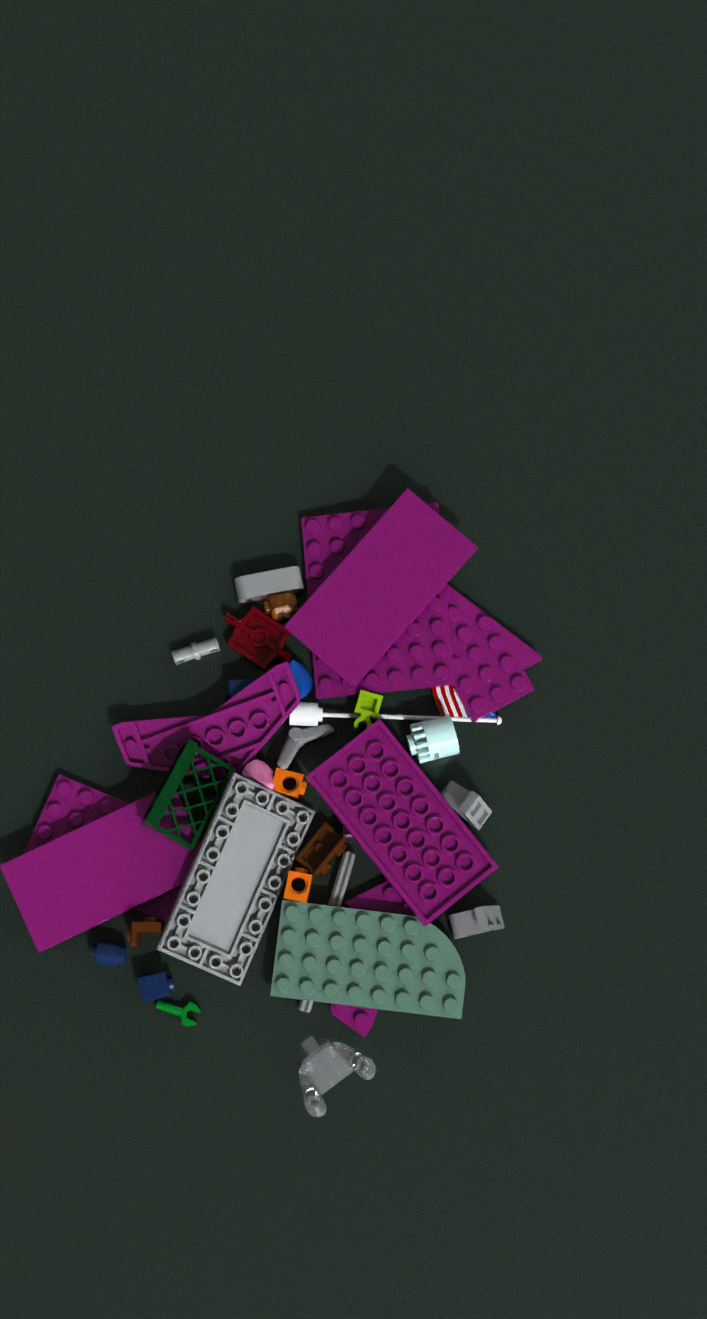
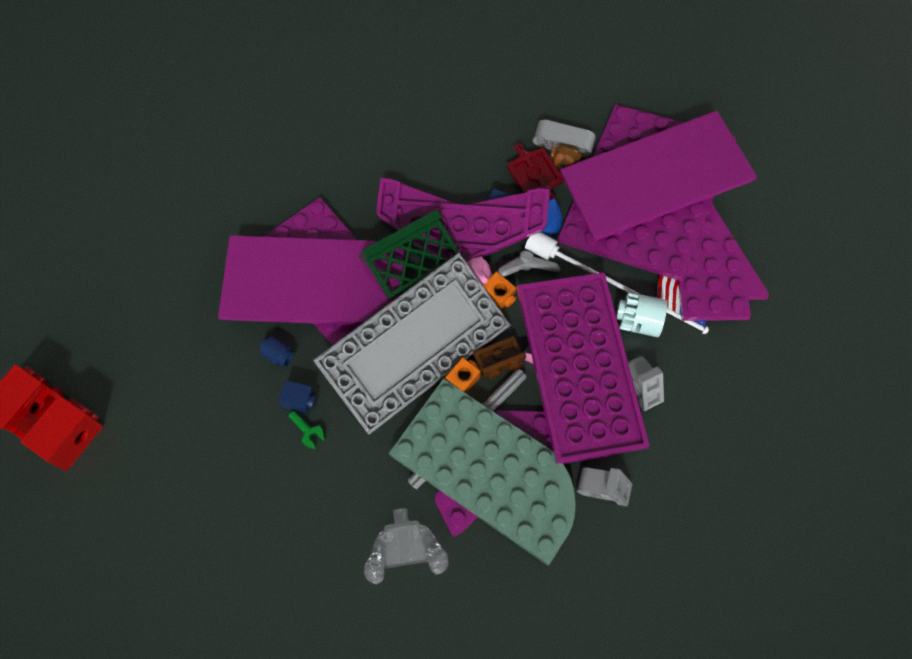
camera: 30 degrees right, 10 degrees down
(148, 926) = (311, 342): reddish brown bracket -> none
(196, 650) = (479, 159): light grey pin -> none
(367, 707) = (597, 263): lime plate -> none

